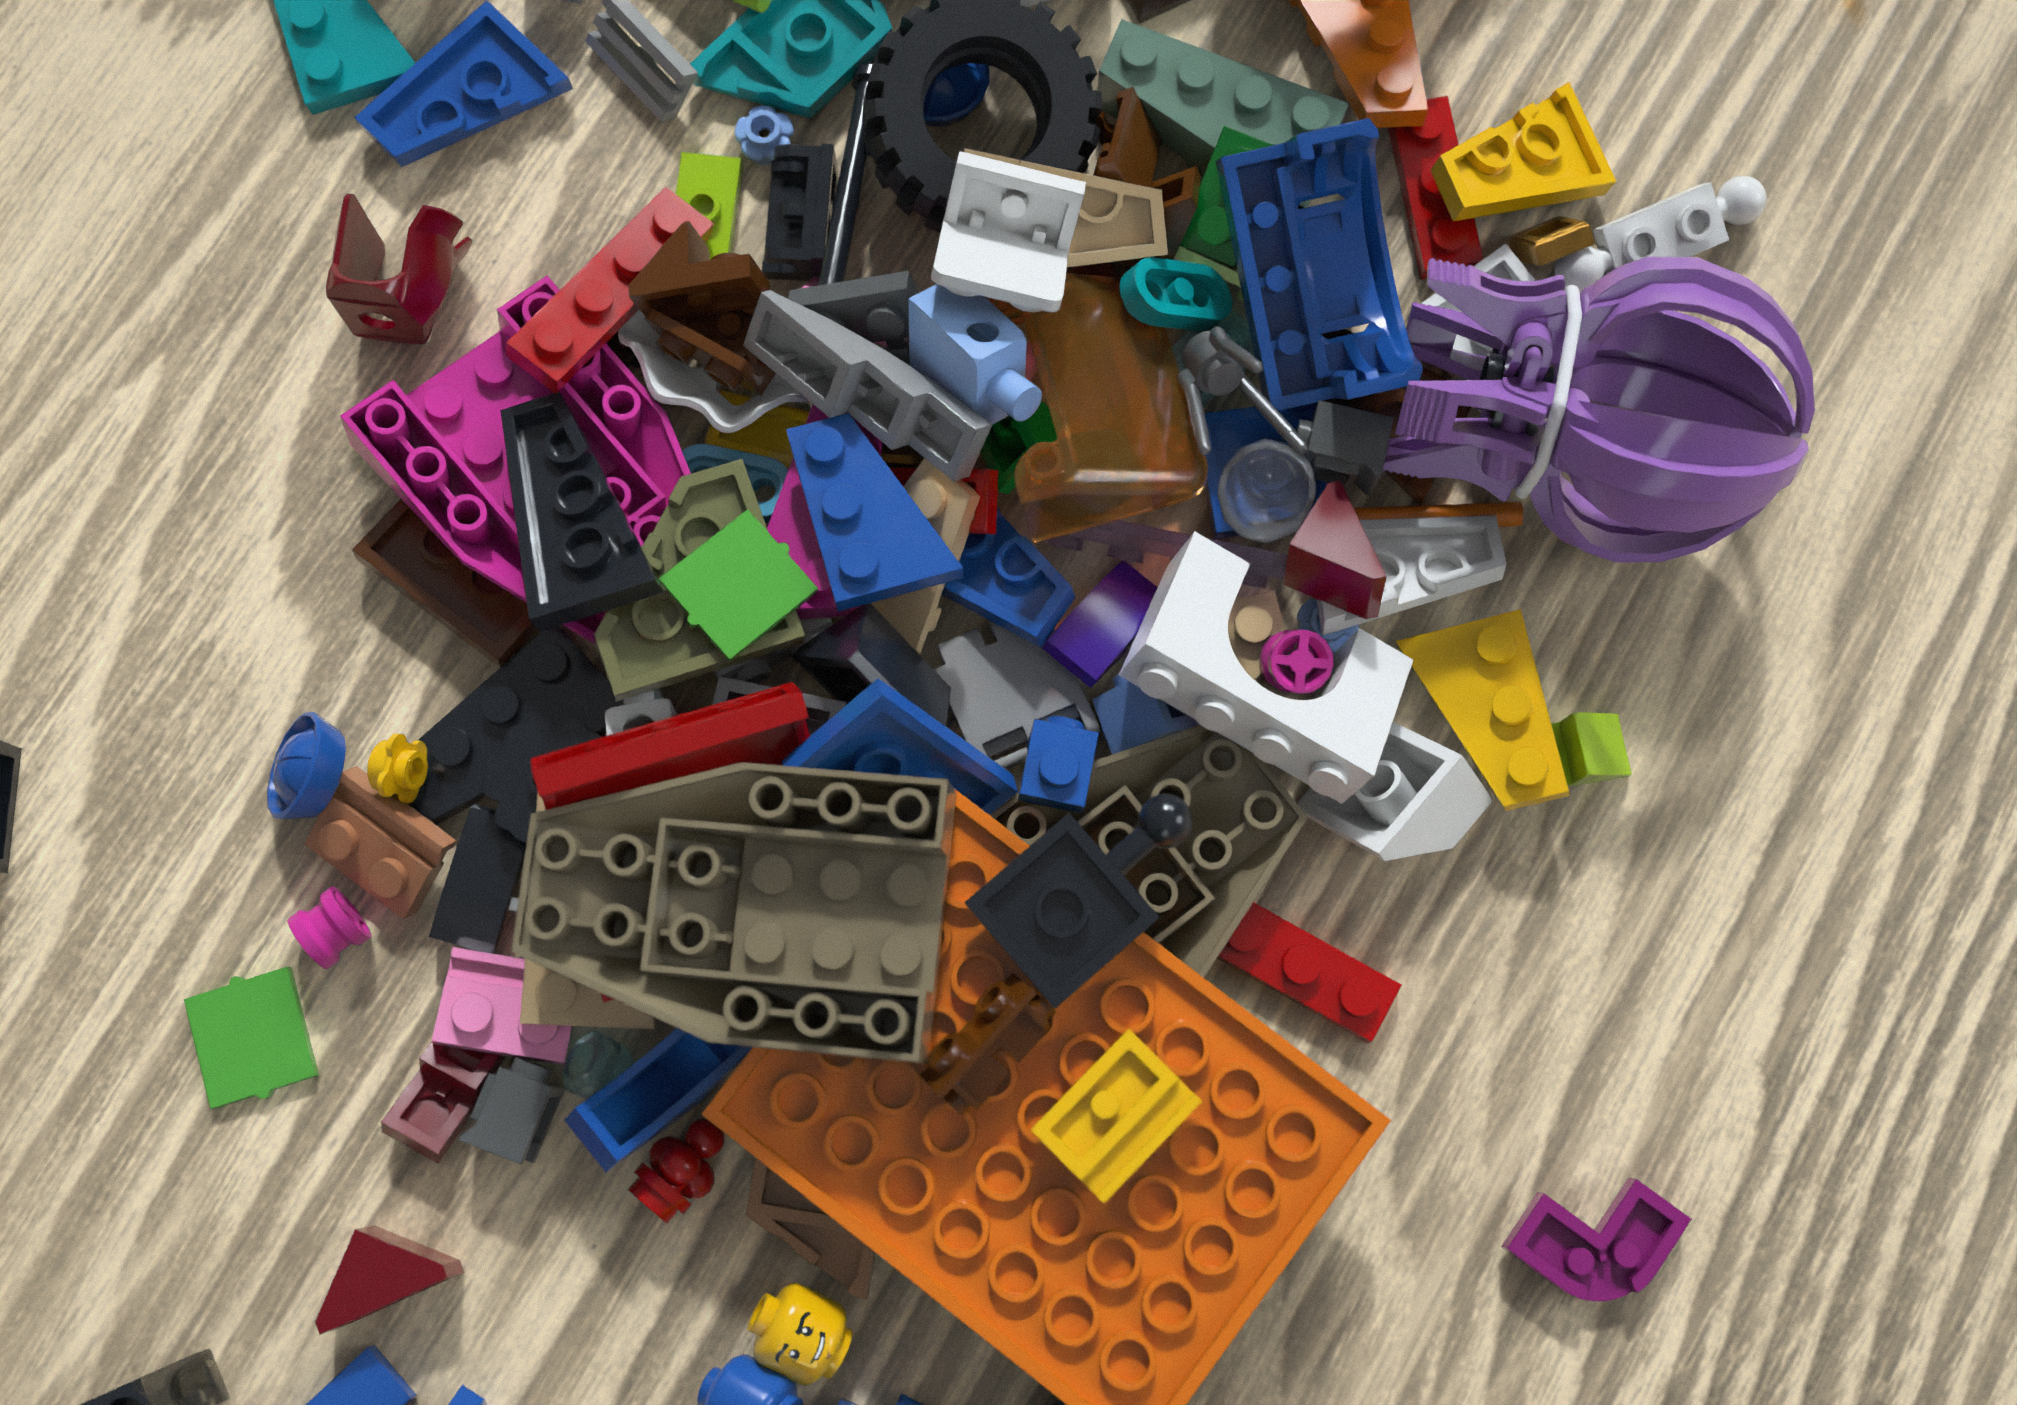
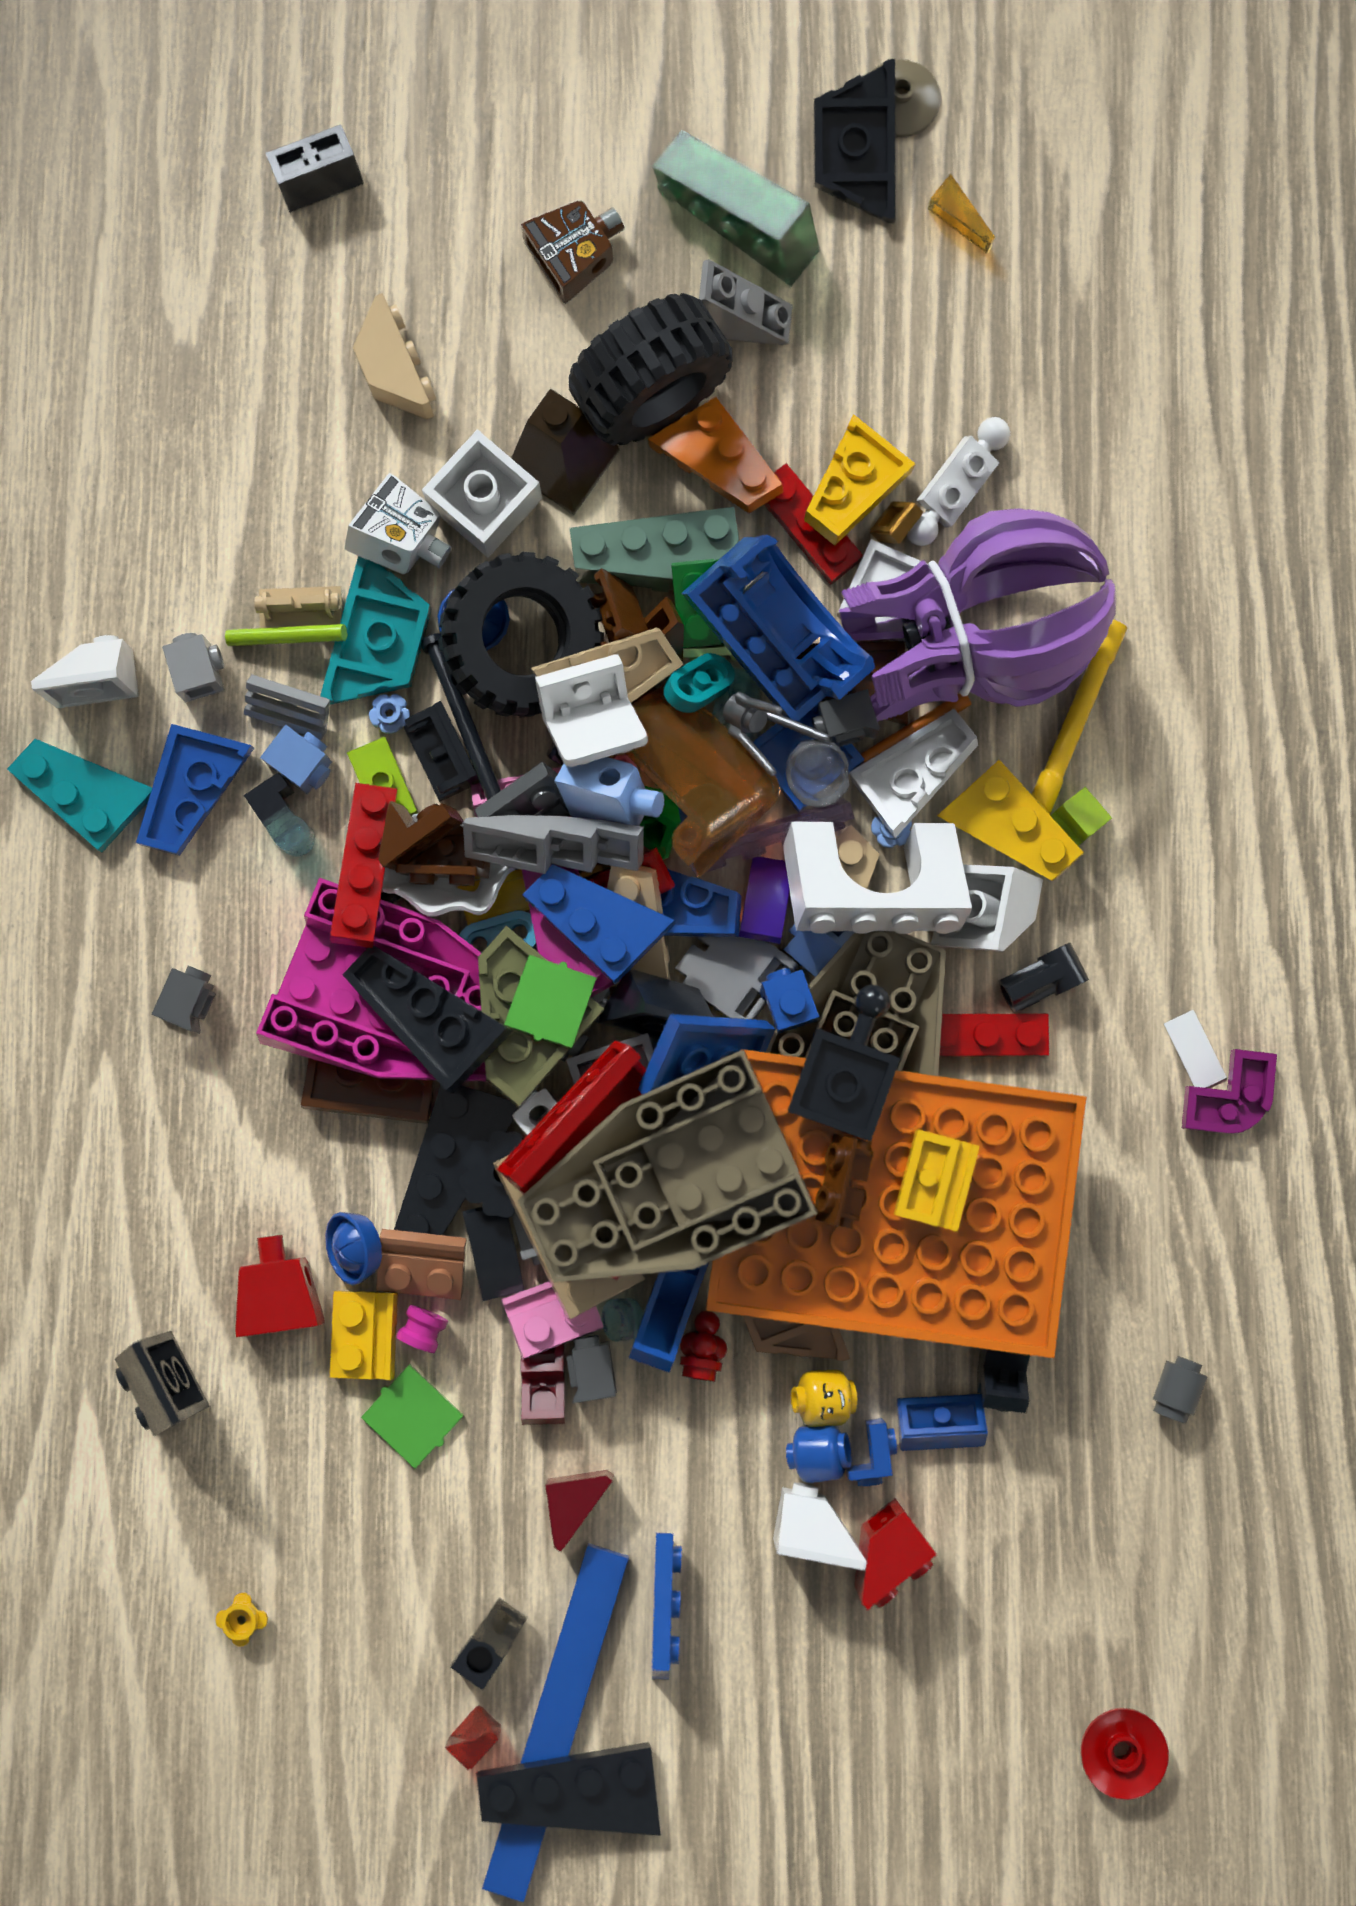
camera: 30 degrees left, 5 degrees up
(174, 772) = (276, 1292): none -> red torso
(252, 893) = (363, 1335): none -> yellow plate
(294, 339) = (185, 998): none -> dark grey window
(398, 767) = (410, 1216): yellow plate -> none
(410, 297) = (247, 943): dark red piece -> none
(548, 182) = (278, 818): none -> leg
(616, 125) = (298, 759): none -> medium blue brick
(1309, 662) = (897, 860): dark pink wheel -> none
(1334, 557) = (879, 791): dark red slope -> none
(1438, 934) = (1050, 975): none -> black piece
(1578, 1150) = (1195, 1050): none -> white sticker
(1732, 557) = (1051, 778): none -> yellow piece

